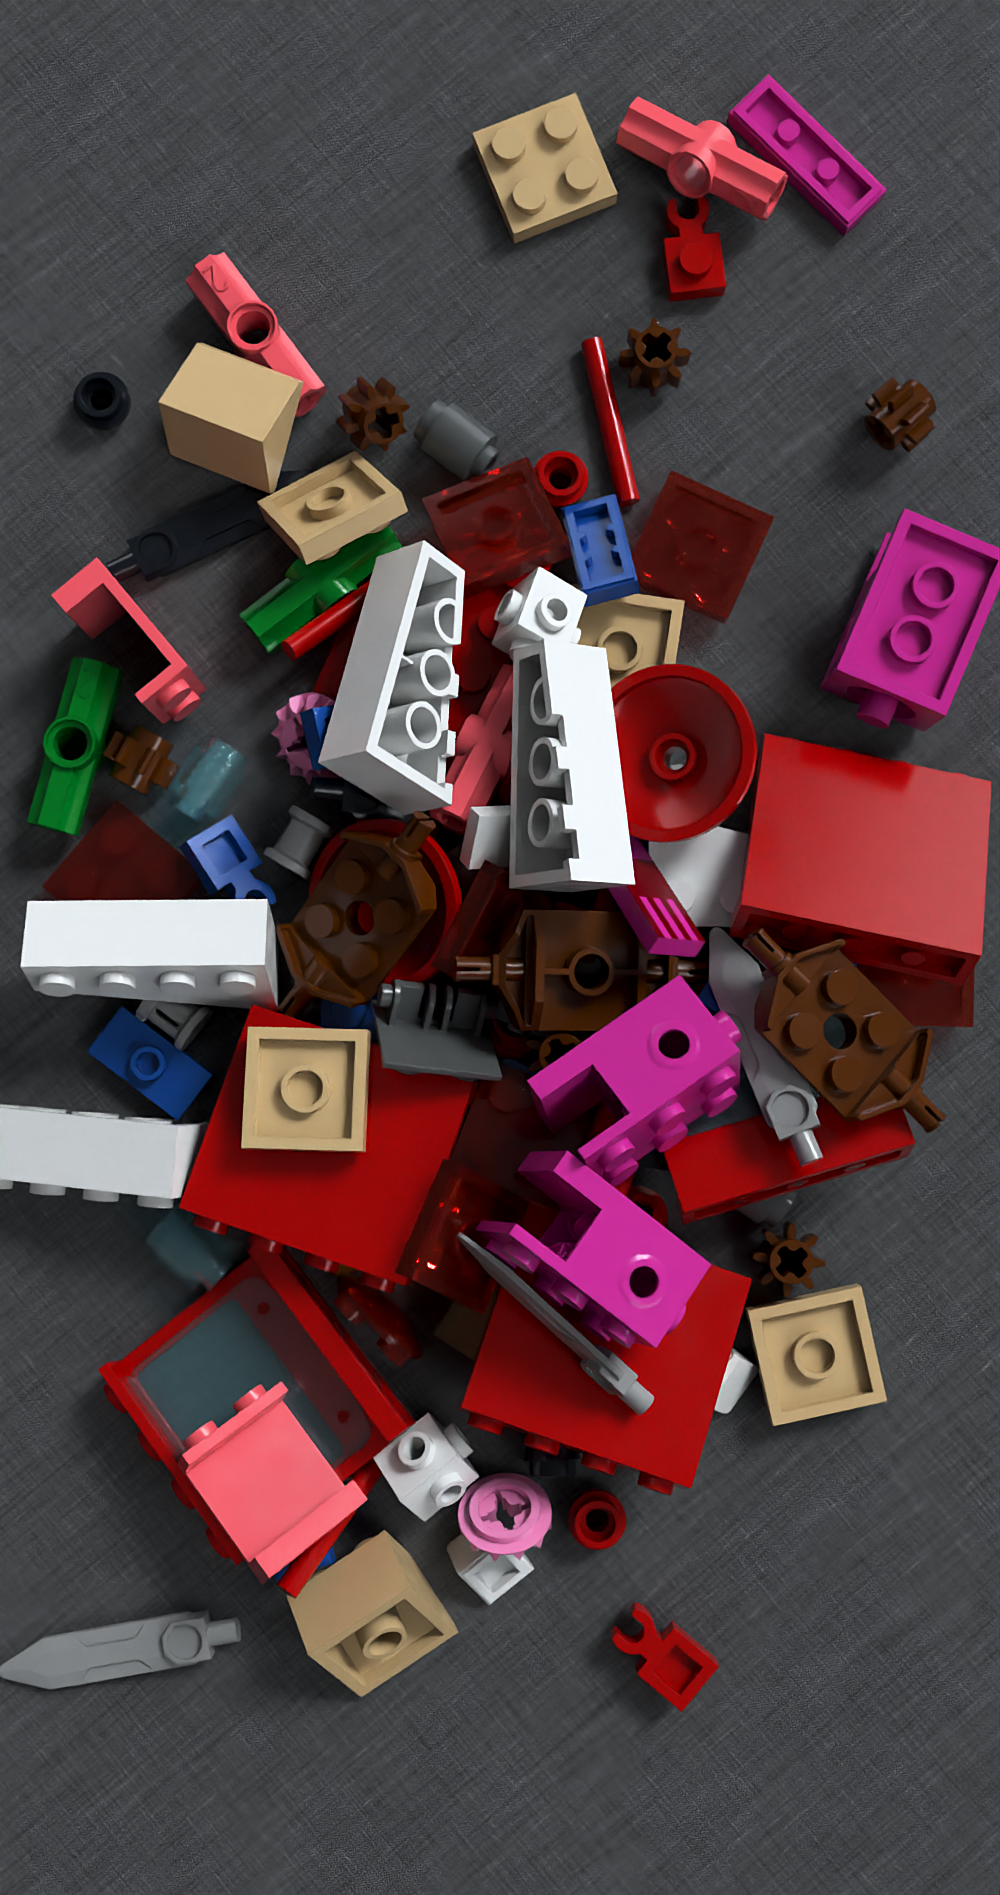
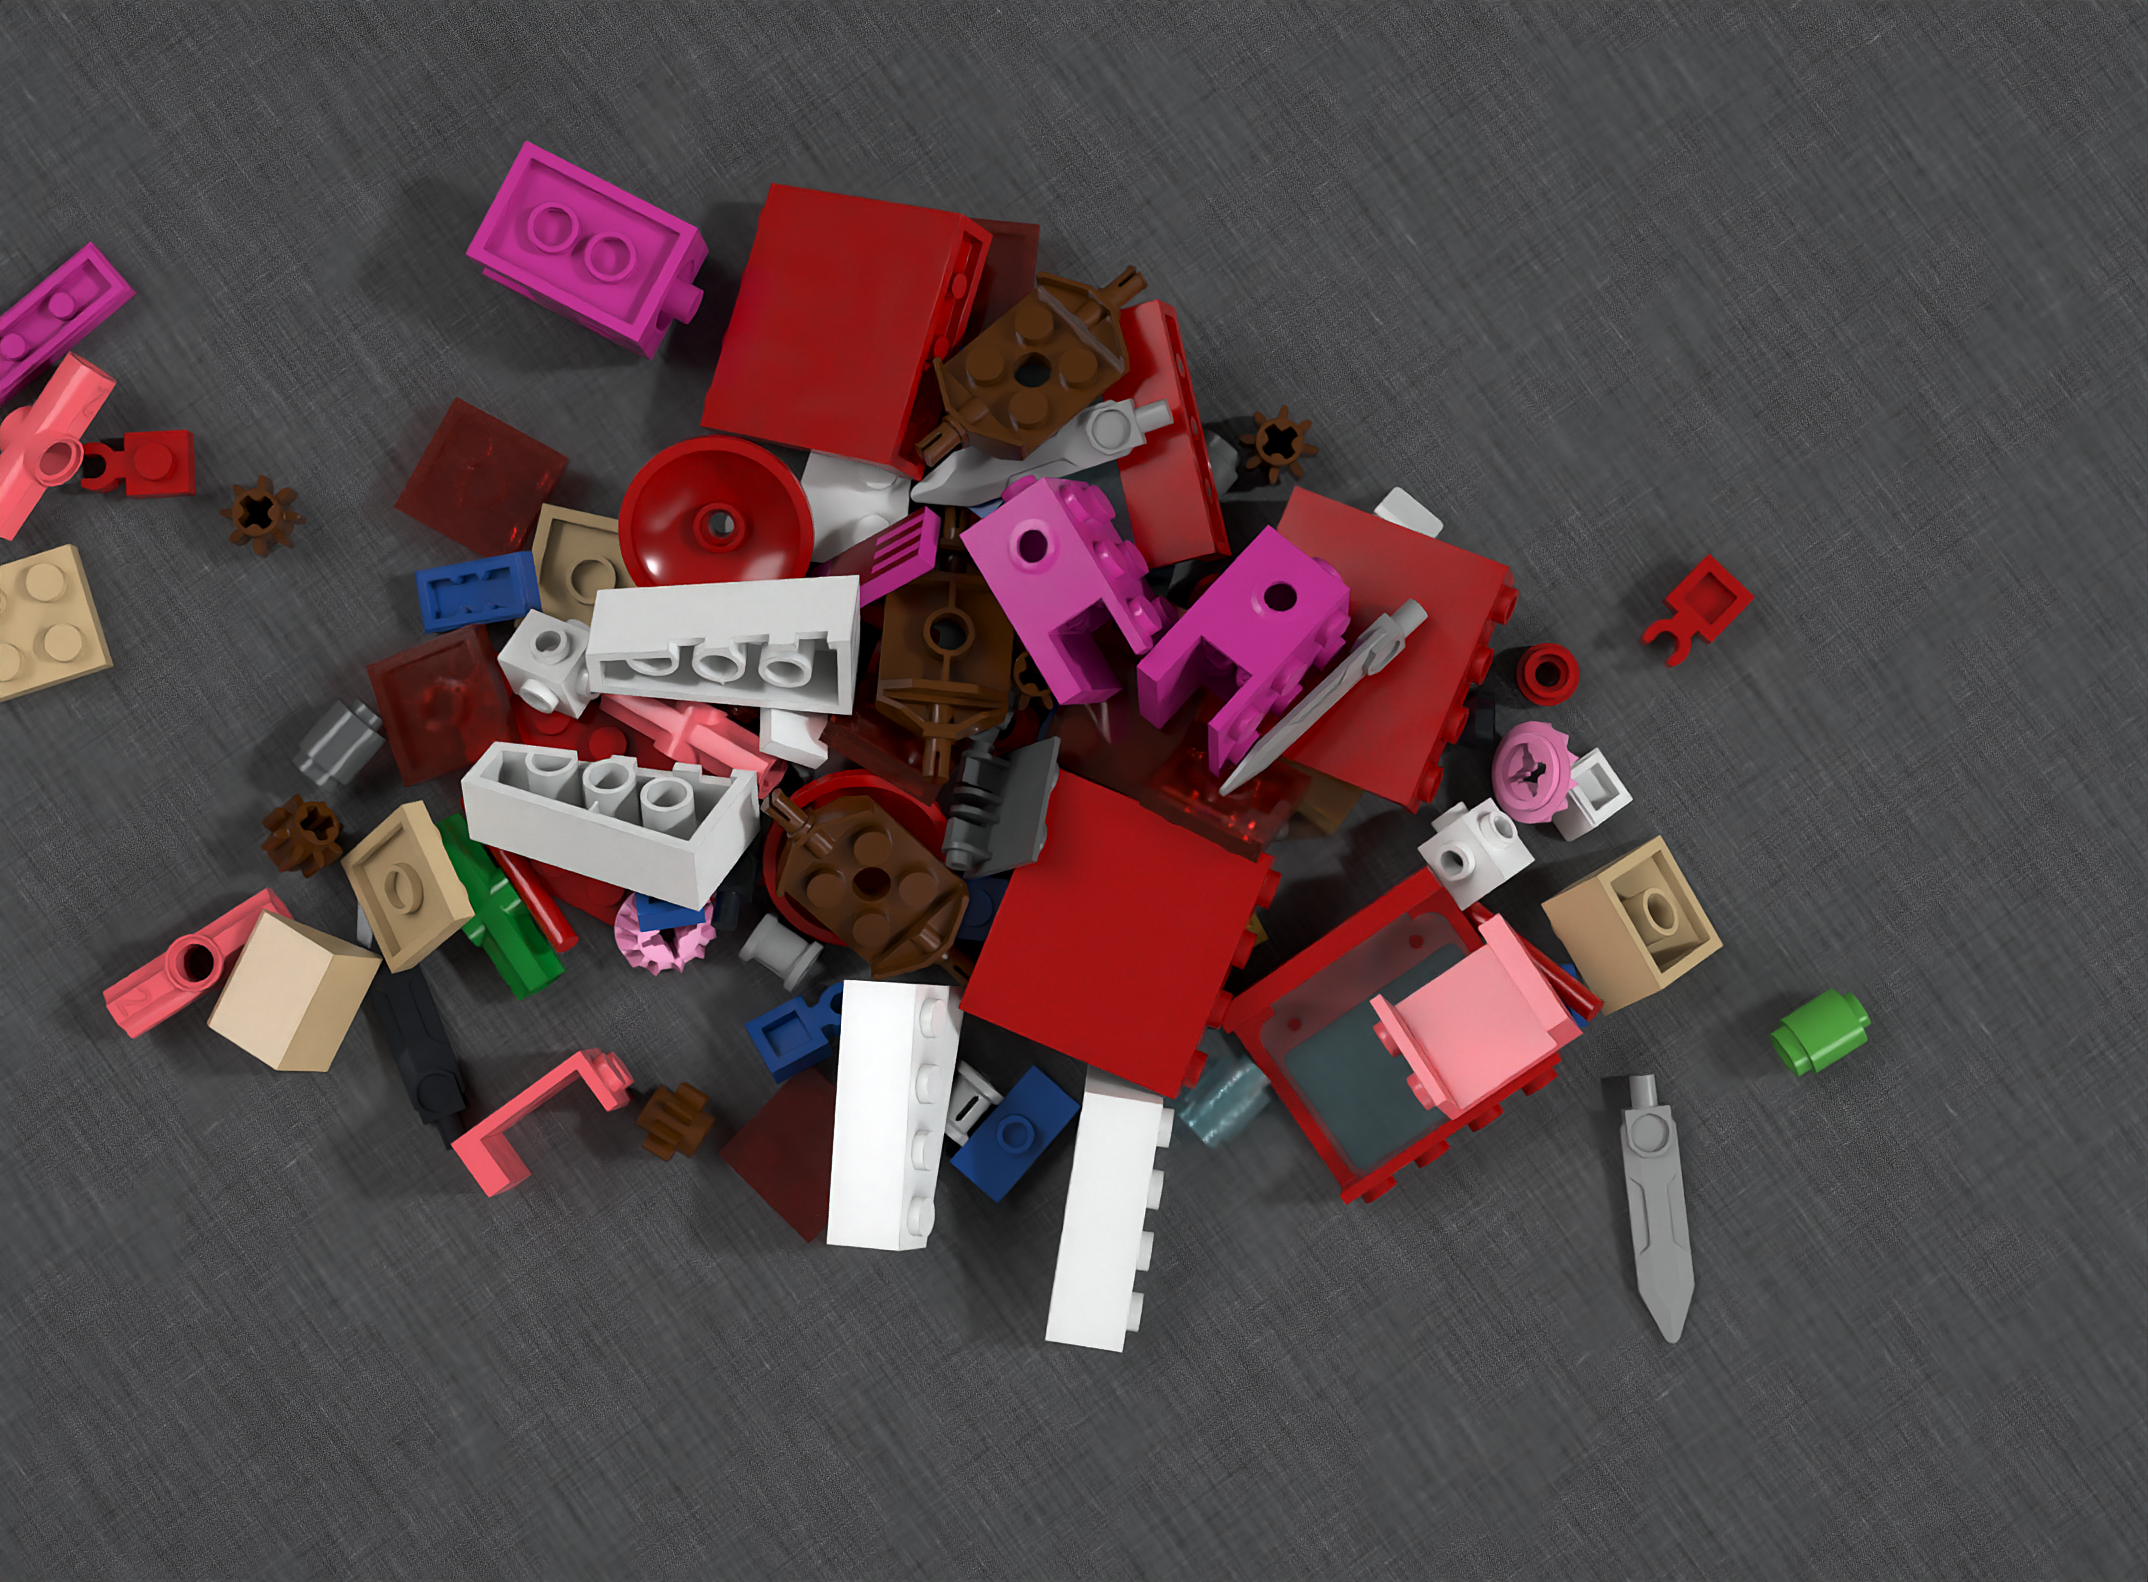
camera: 85 degrees left, 0 degrees up
(85, 710) = (615, 1183): green piece -> none
(98, 385) = (239, 1144): black plate -> none
(207, 779) = (702, 1049): clear light blue brick -> none
(285, 1797) = (1820, 1032): none -> bright green brick
(306, 1089) = (1054, 949): tan plate -> none
(383, 1314) = (1324, 878): clear red dish -> none
(564, 463) = (379, 617): red plate -> none
(610, 422) = (330, 571): red bar -> none
(815, 1354) = (1383, 423): tan plate -> none
(900, 414) = (351, 248): reddish brown gear -> none

